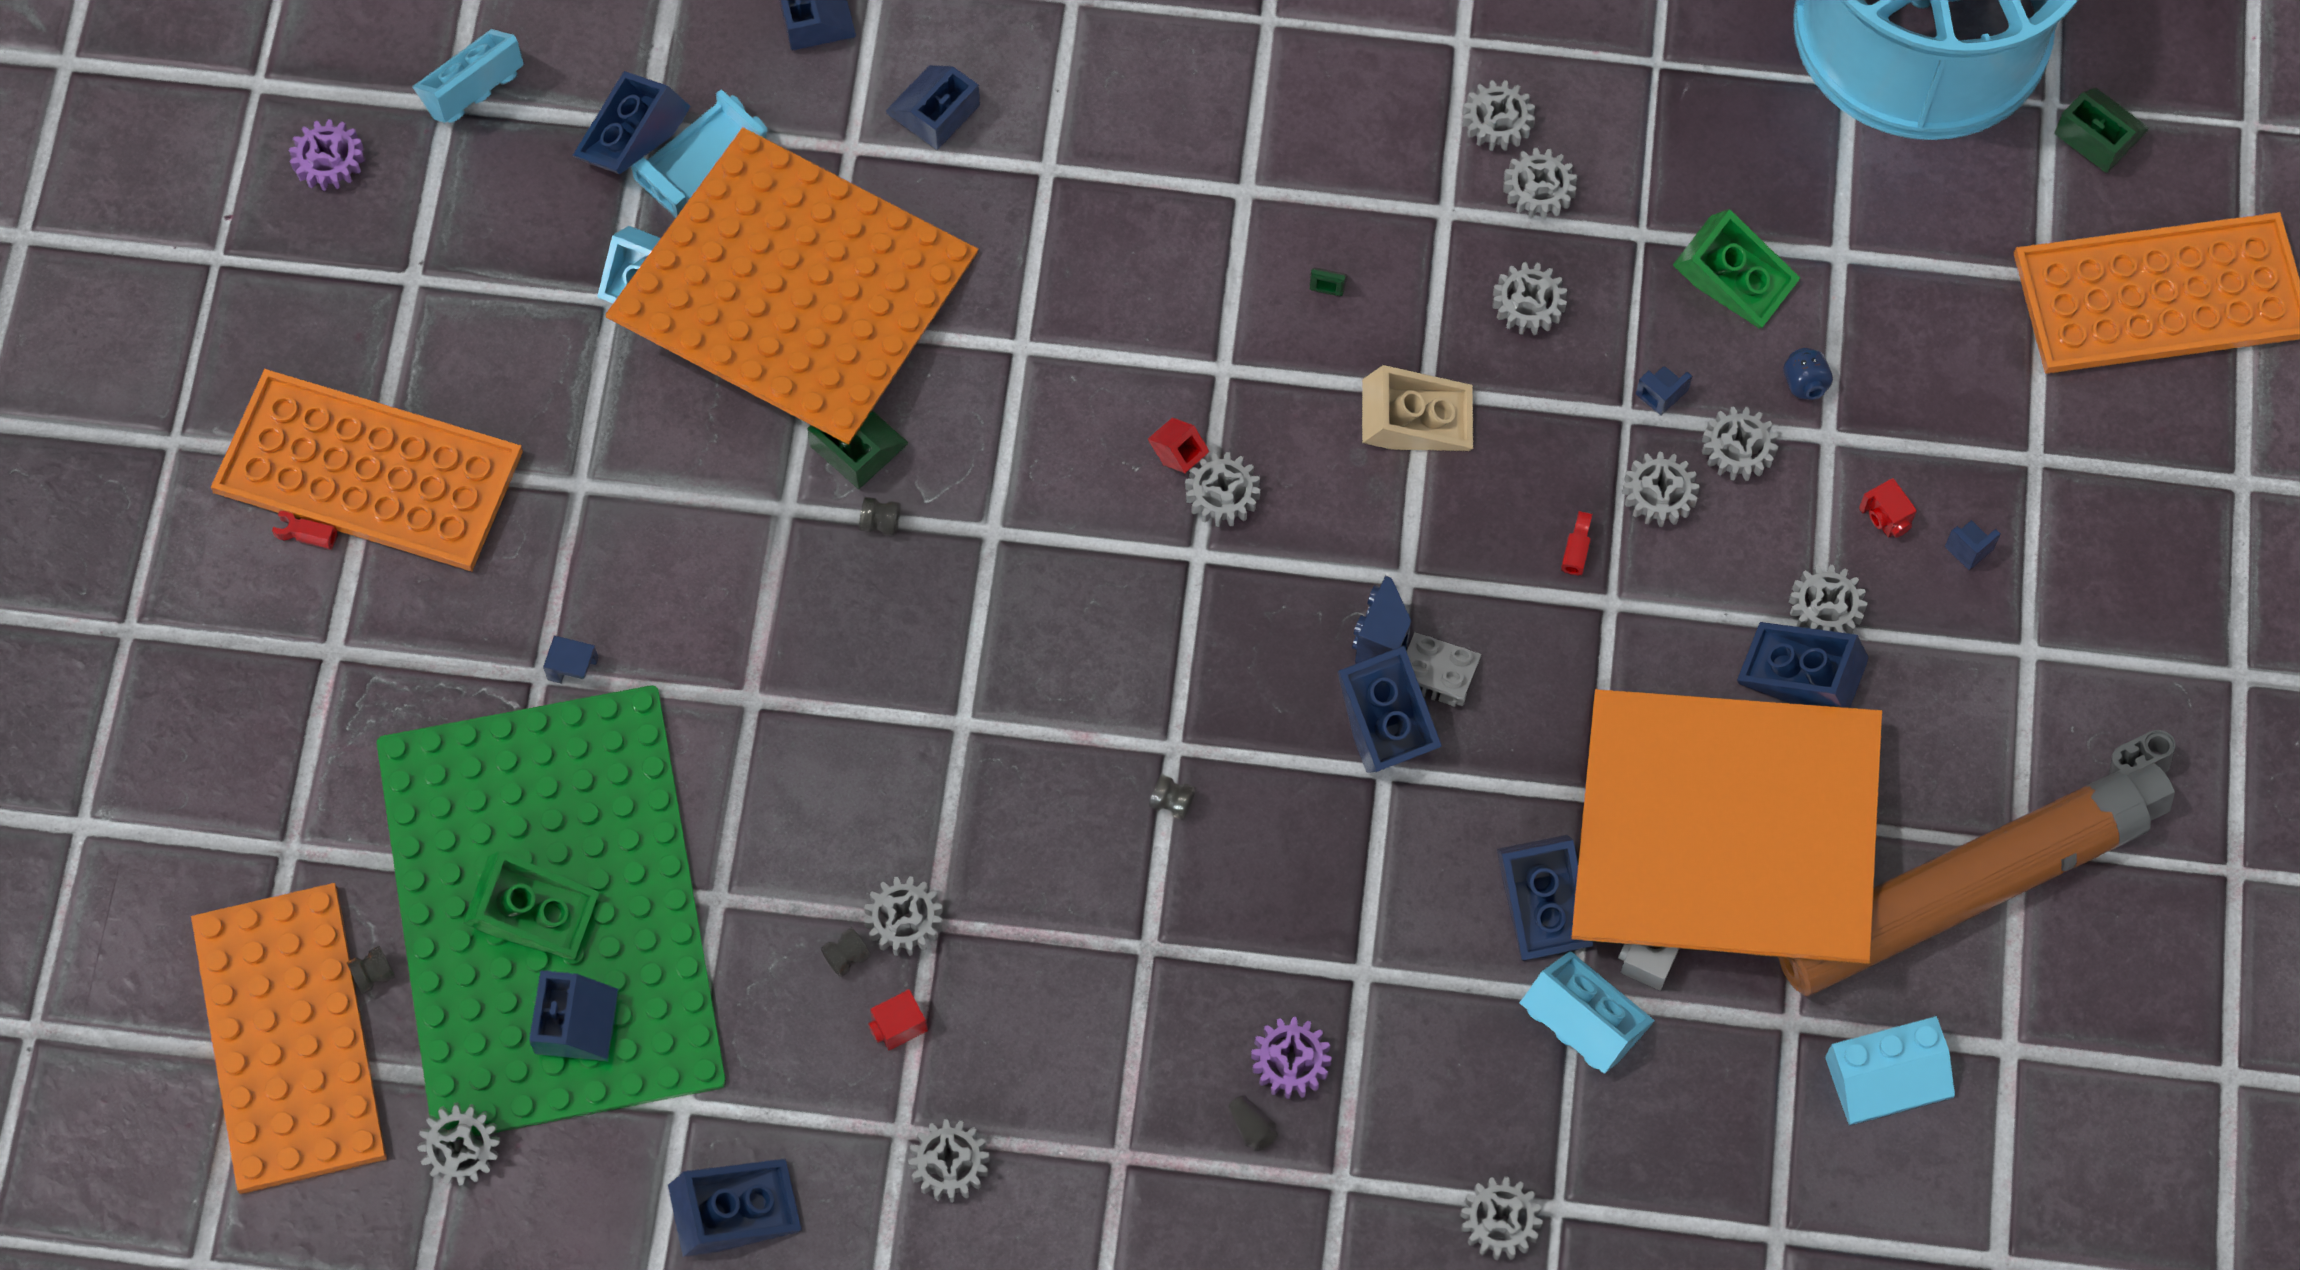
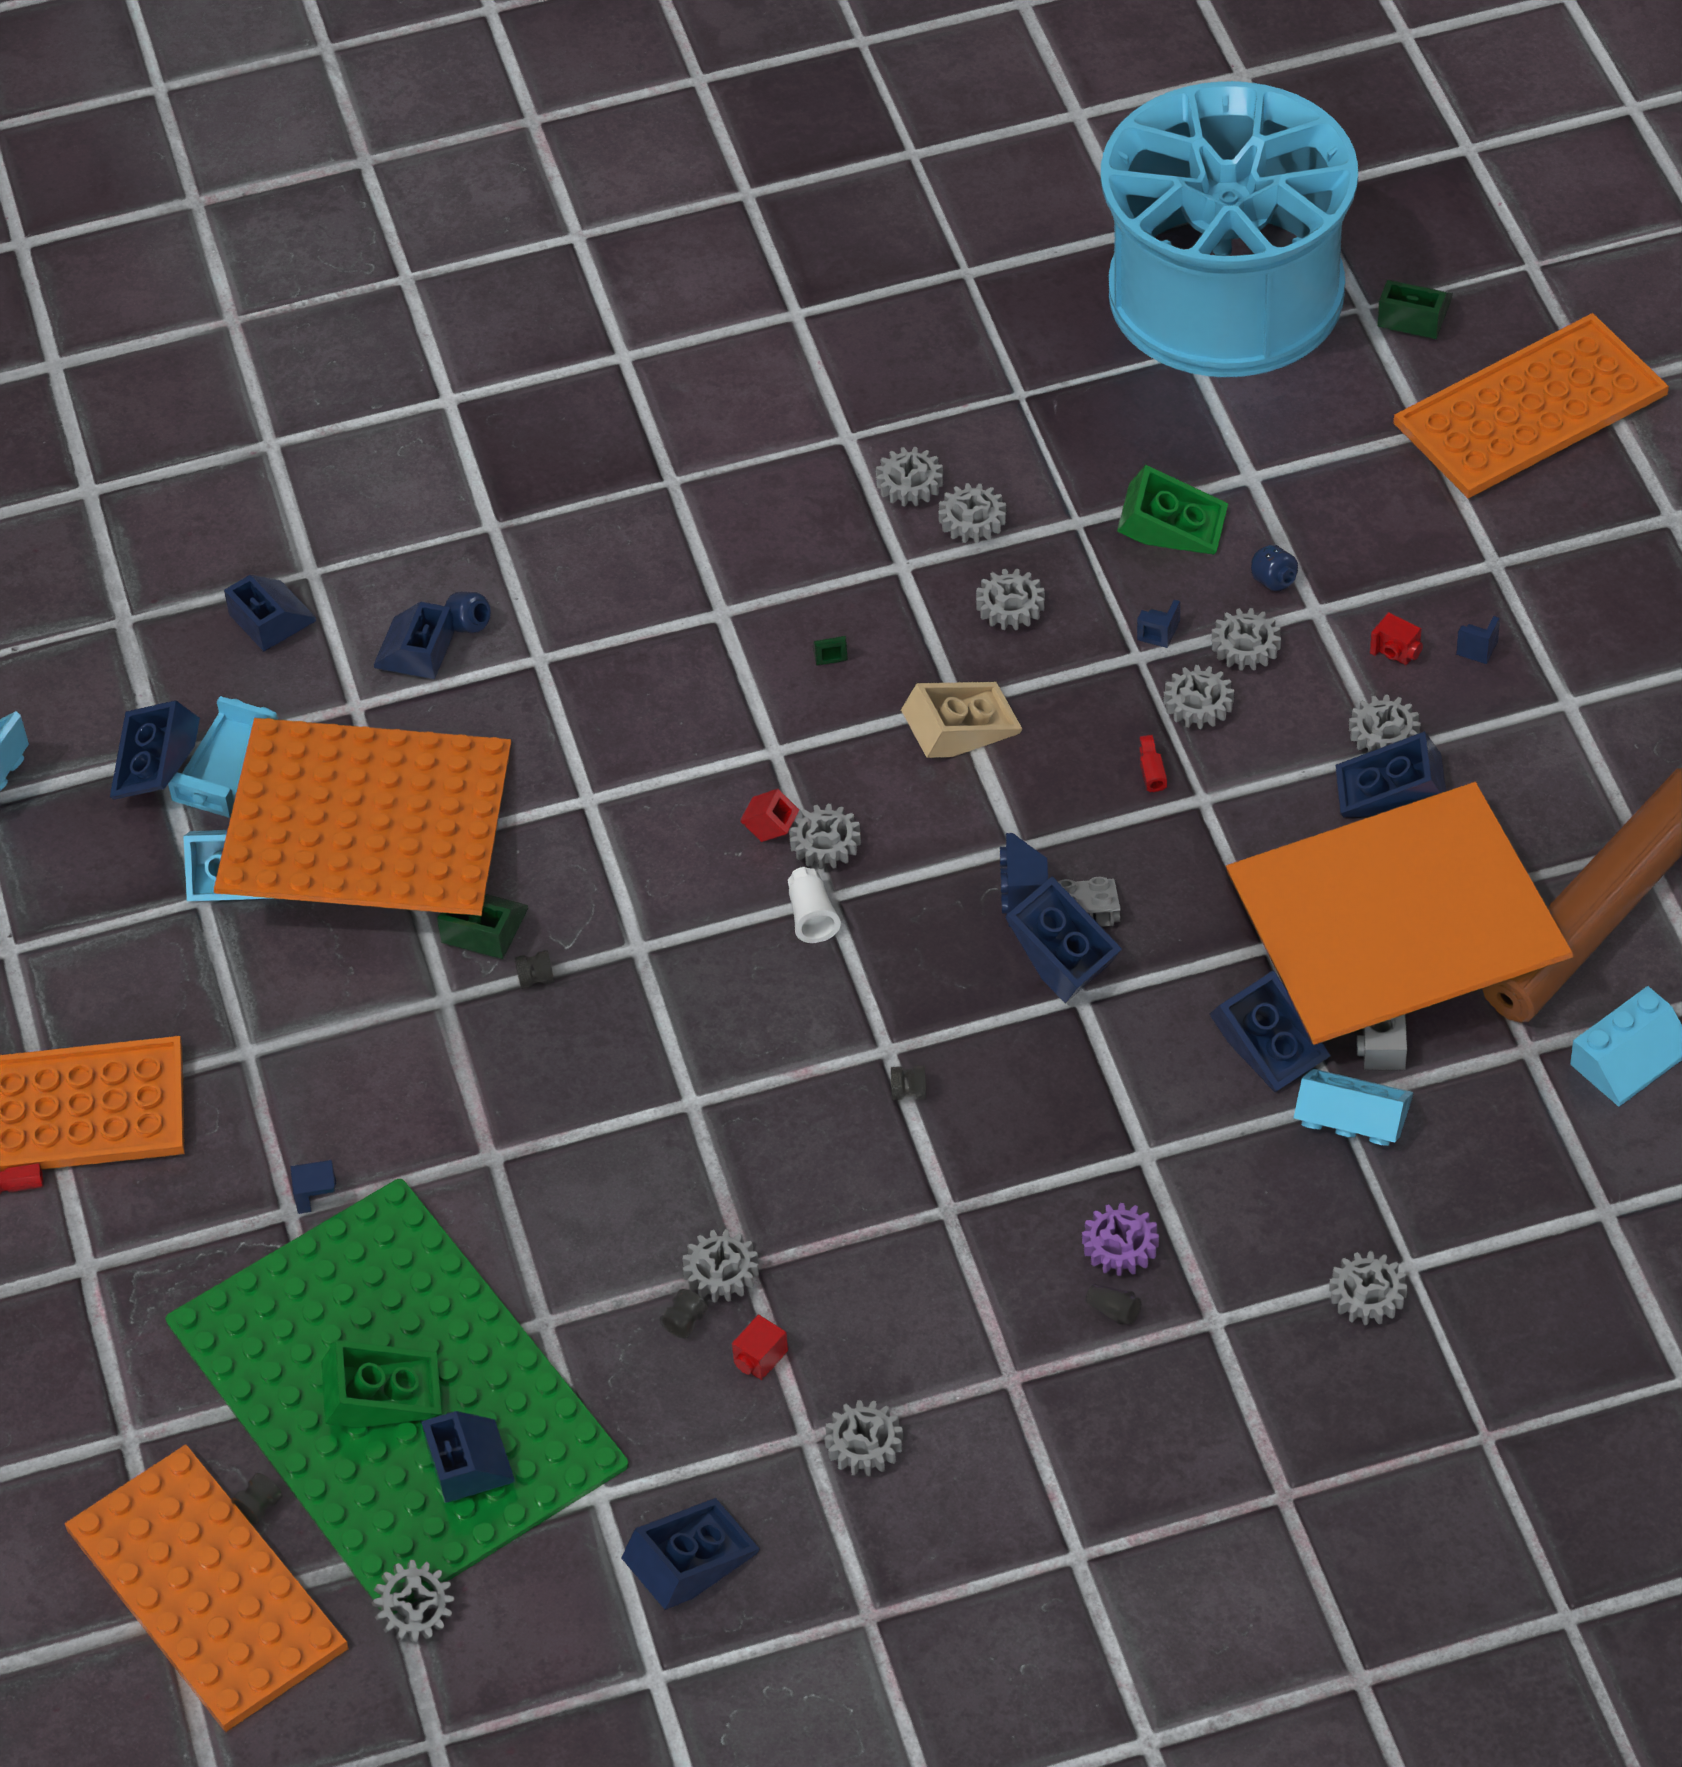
camera: 20 degrees left, 15 degrees down
(999, 90) = (469, 611): none -> dark blue head
(1172, 561) = (811, 906): none -> white plant

